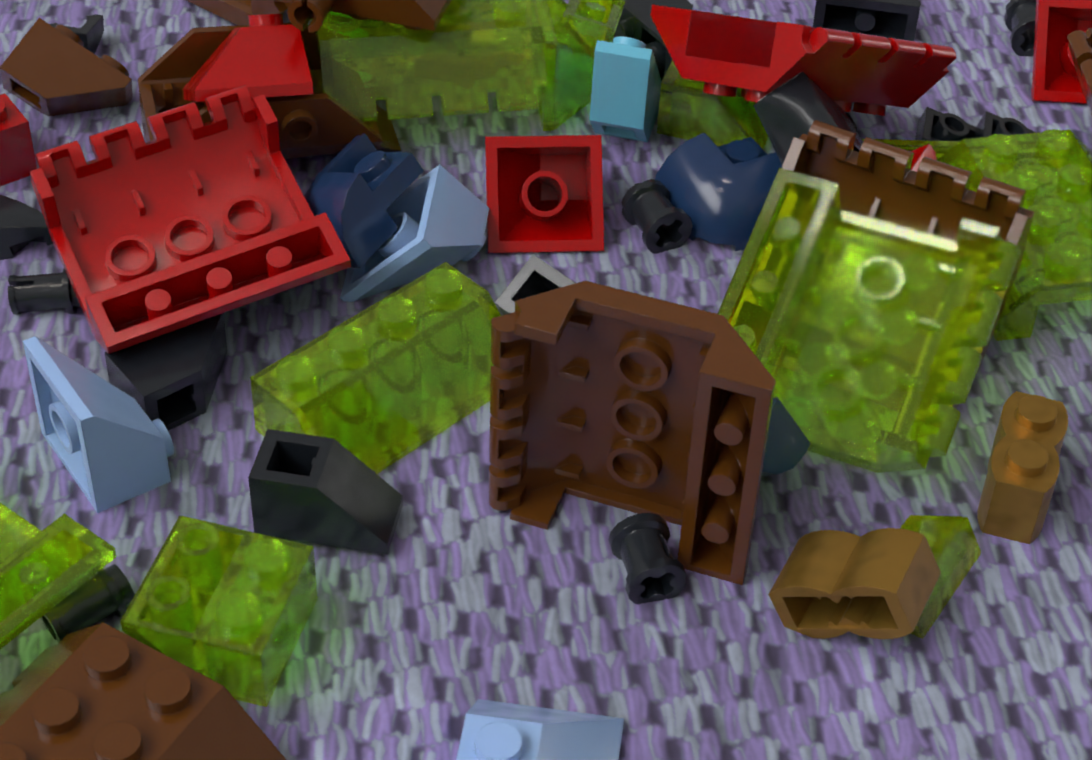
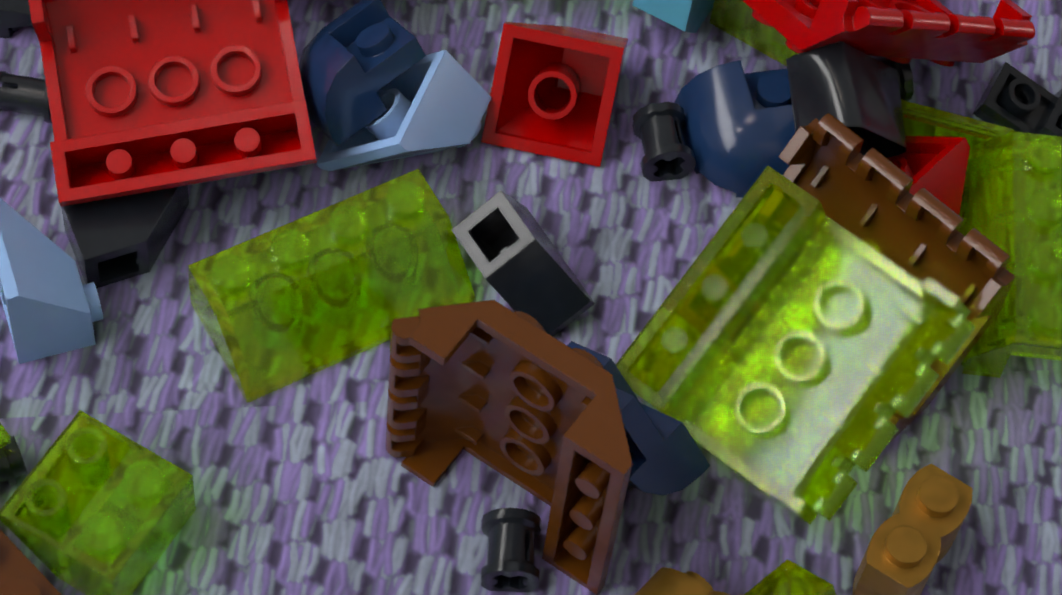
camera: 10 degrees right, 15 degrees up
(320, 494) = (224, 408): black slope -> none

